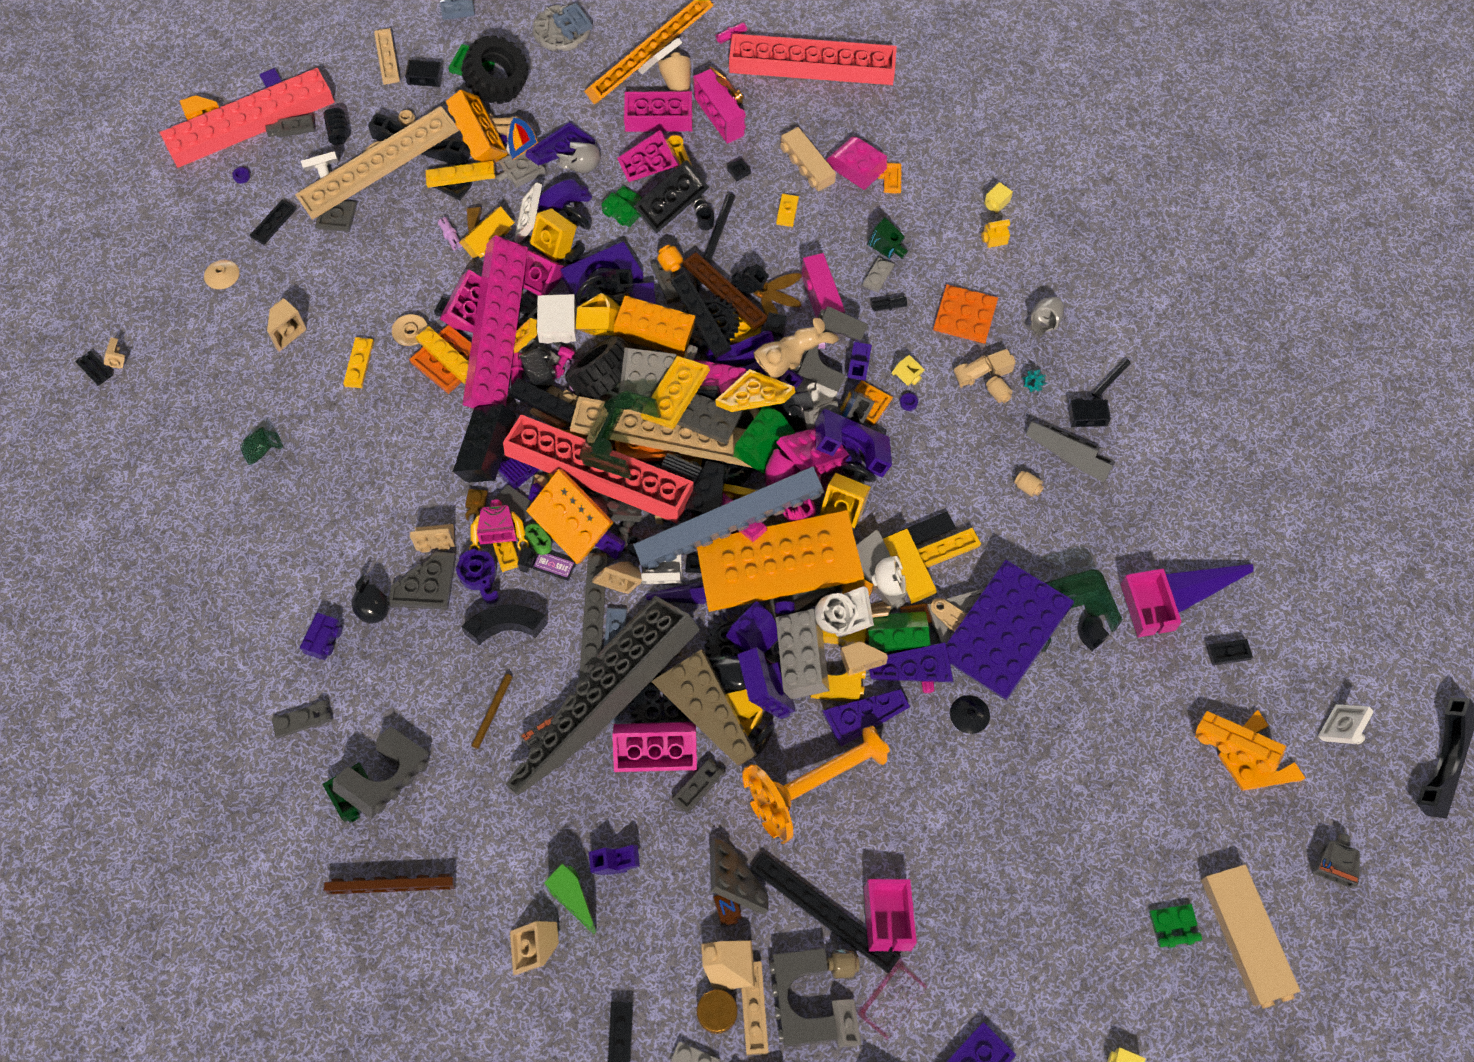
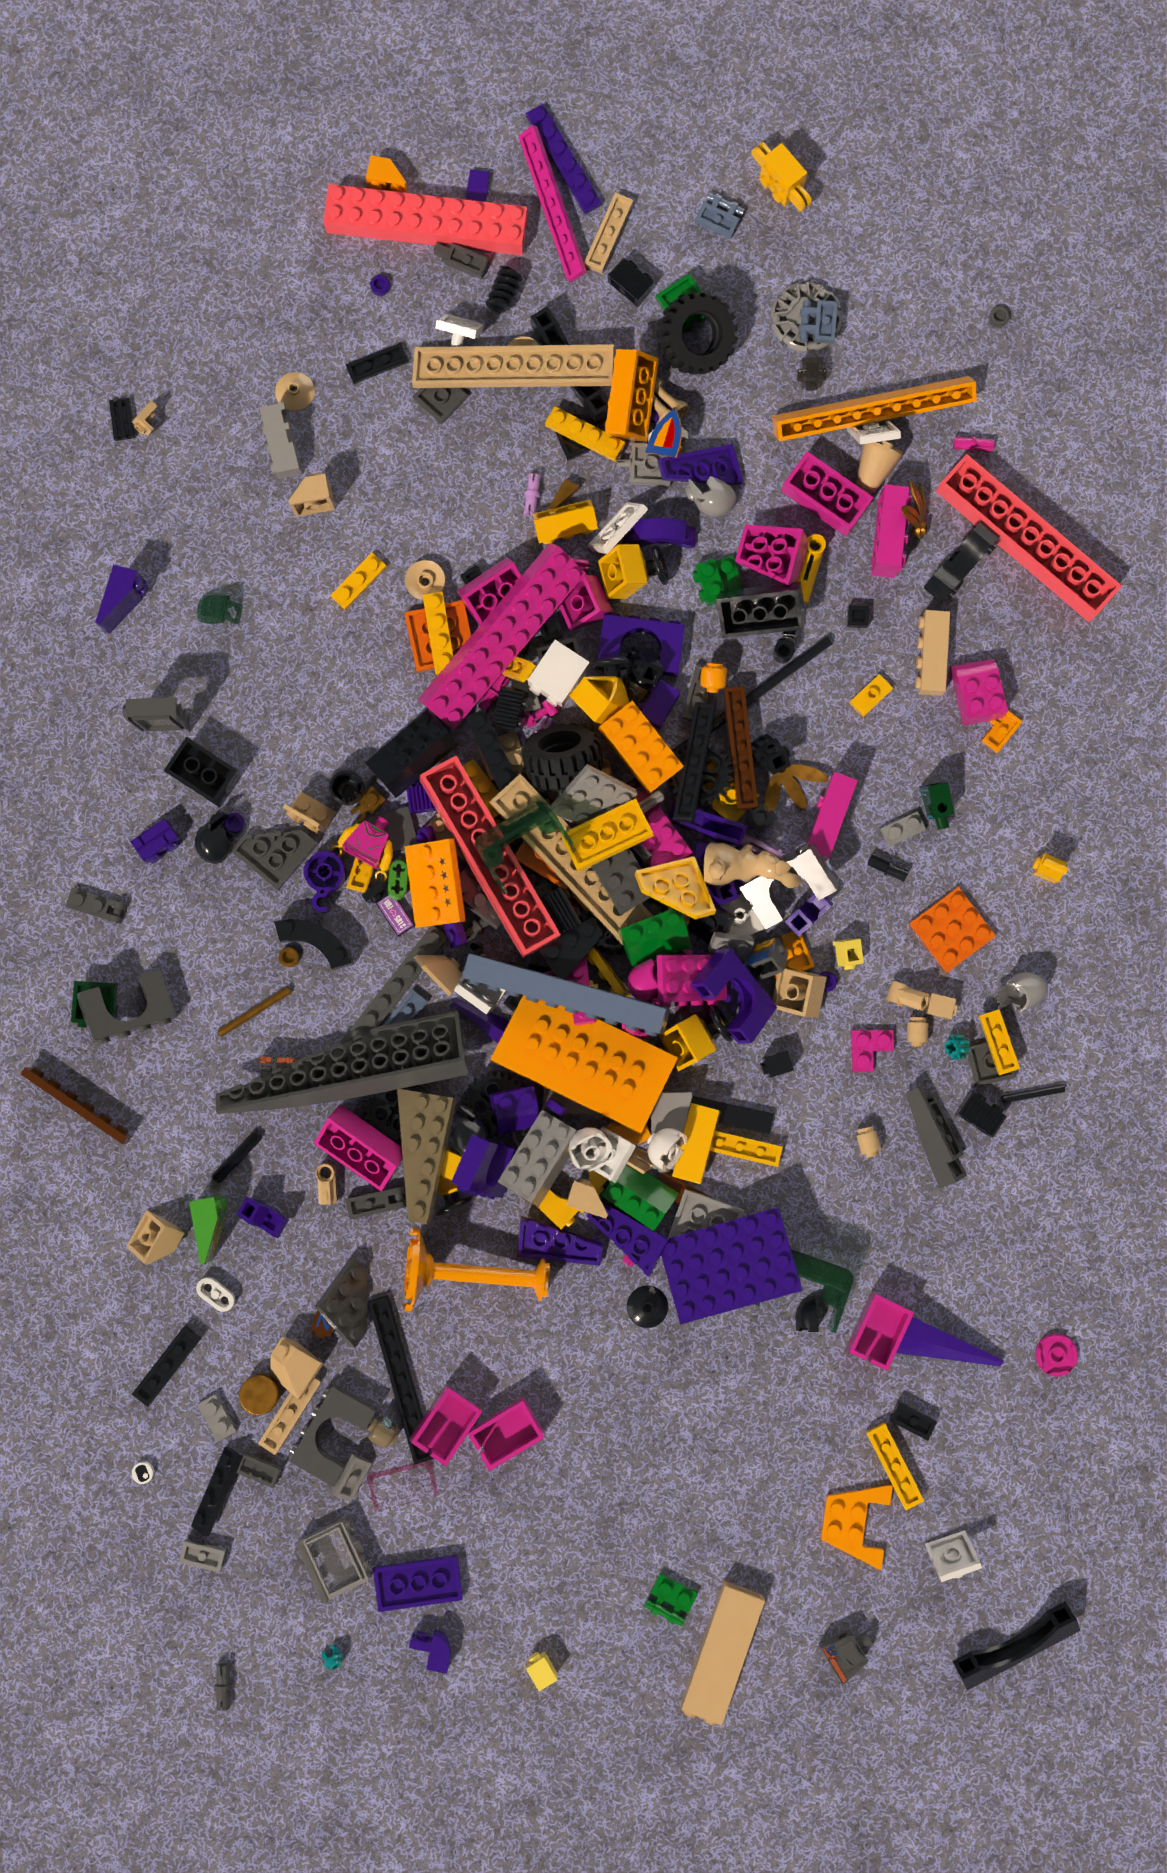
camera: 40 degrees right, 20 degrees up
(173, 478) = (120, 597): none -> dark purple slope
(232, 306) = (280, 440): none -> light grey wedge
(259, 538) = (156, 714): none -> dark grey window
(323, 34) = (564, 159): none -> dark purple plate
(326, 560) = (202, 772): none -> black brick
(334, 61) = (552, 204): none -> dark pink plate
(379, 581) = (234, 823): none -> dark purple tile
(406, 114) = (578, 320): tan plate -> none
(450, 497) = (346, 786): none -> black helmet
(491, 651) = (289, 957): none -> pearl gold tile
(557, 834) = (236, 1157): none -> black axle
(574, 255) = (631, 603): black pin -> none
(590, 53) = (811, 373): none -> clear smoke brick
(619, 955) = (215, 1295): none -> white plate
(649, 799) = (327, 1185): none -> tan piece
(781, 102) = (958, 566): none -> black brick
(896, 417) = (799, 992): none -> tan slope
(921, 475) = (776, 1064): none -> black brick
(942, 886) = (506, 1433): none -> dark pink piece
(949, 615) = (696, 1214): tan piece -> none
(971, 422) = (864, 1043): none -> dark pink plate
(998, 198) = (1084, 829): light yellow brick -> none
(1059, 357) = (999, 1042): none -> yellow plate
(1065, 377) = (983, 1066): none -> dark grey tile
(1240, 742) = (848, 1504): light orange brick -> none
(1246, 694) = (894, 1466): none -> yellow plate
(1281, 541) = (1050, 1349): none -> dark pink tile

